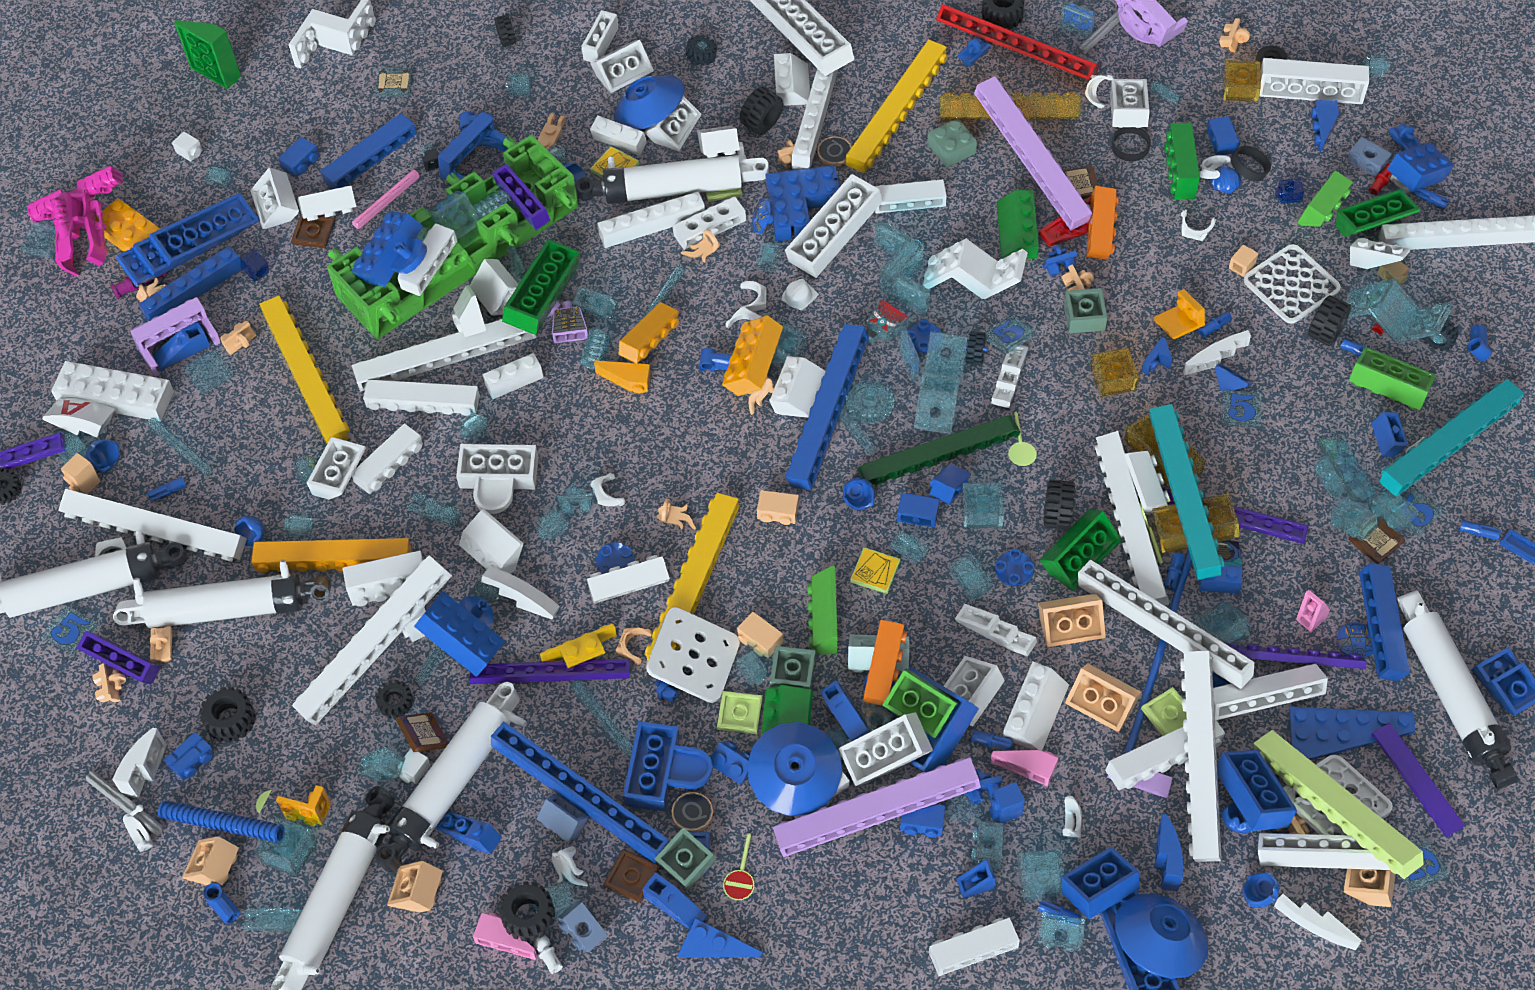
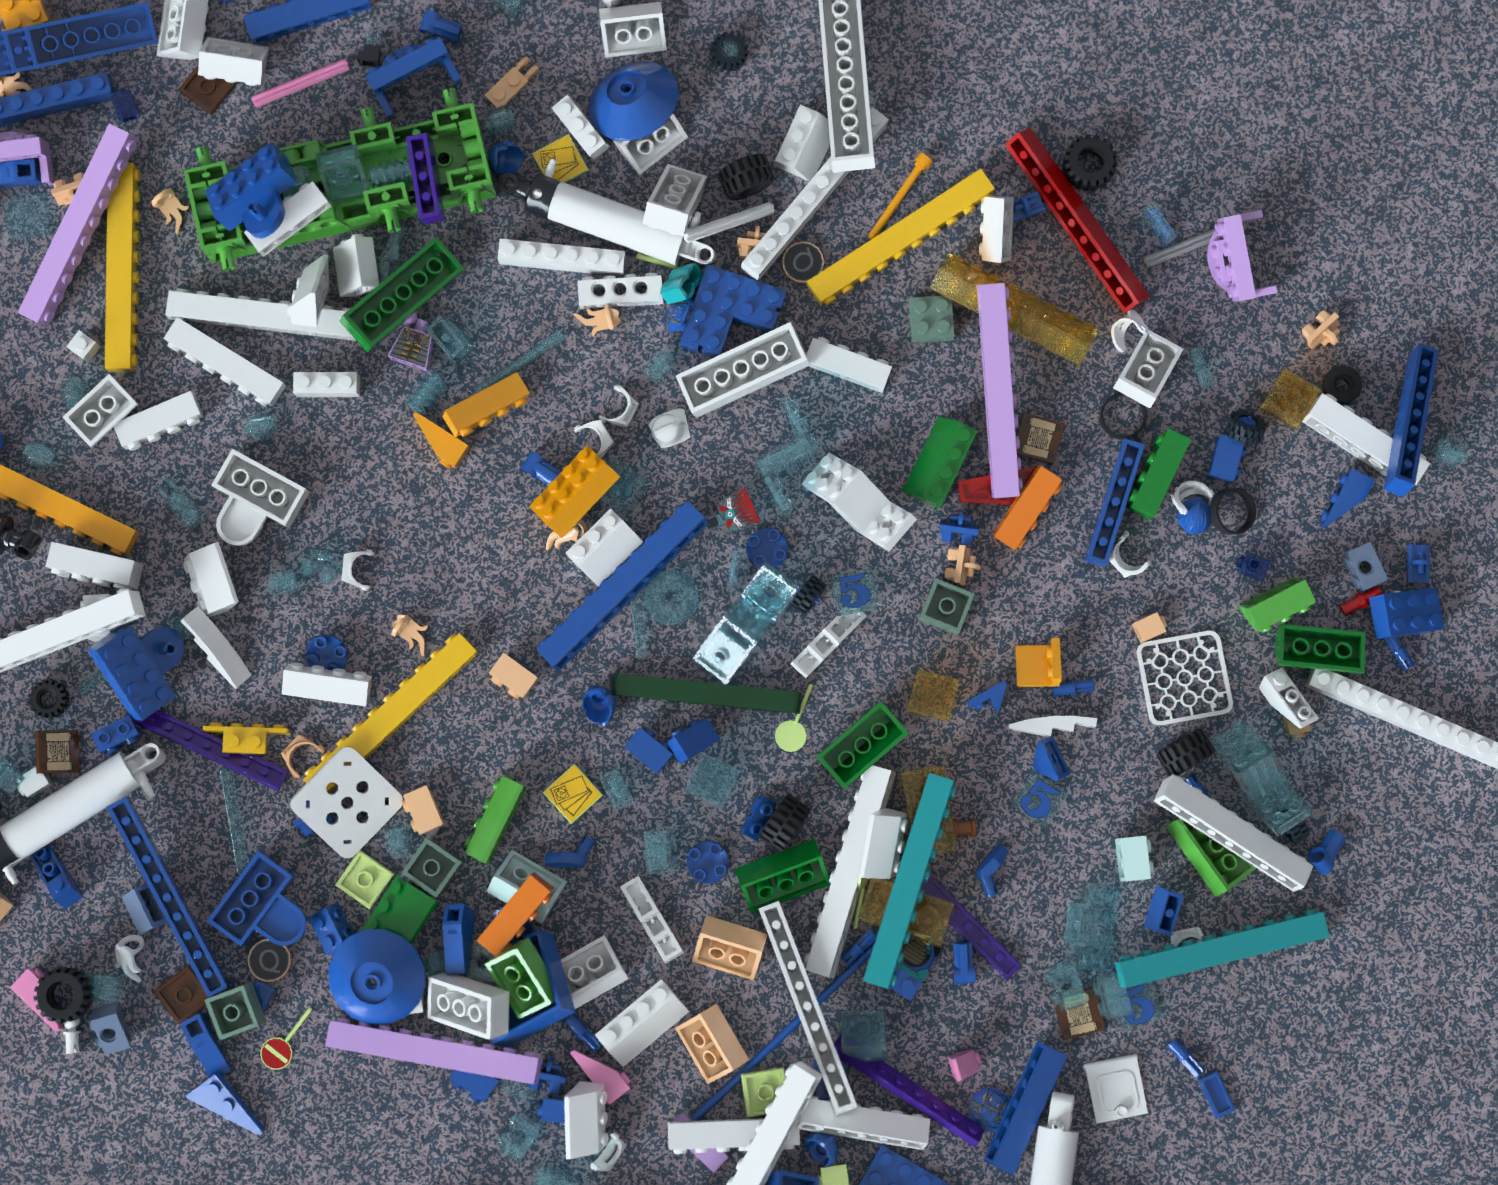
camera: 25 degrees right, 25 degrees up
(255, 353) = (78, 225): none -> lavender brick
(299, 434) = (83, 346): none -> white brick
(322, 316) = (169, 204): none -> light nougat piece
(468, 695) = (115, 735): none -> blue bracket
(753, 194) = (681, 283): none -> teal brick
(765, 142) = (728, 222): none -> white axle
(883, 58) = (922, 163): none -> light orange piece
(904, 613) = (571, 859): none -> blue arm
(963, 64) = (997, 228): none -> white slope
(977, 880) = (489, 1165): blue slope -> none
(1034, 514) = (761, 813): none -> blue hinge
(1038, 795) = (585, 1120): none -> white slope
(1082, 427) = (862, 745): none -> green slope
(1163, 194) = (1114, 503): none -> blue brick
(1203, 448) = (965, 827): none -> dark orange bush
(1223, 109) = (1245, 427): none -> black wheel
(1235, 471) = (988, 867): none -> blue arm
(1244, 728) = (822, 1148): none -> blue hair
(1265, 547) = (963, 963): none -> blue piece
(1337, 45) = (1411, 420): none -> blue brick
(1341, 408) = (1134, 858): none -> light aqua brick
(1403, 355) = (1233, 833): none -> white brick
(1442, 575) = (1115, 1084): none -> white container

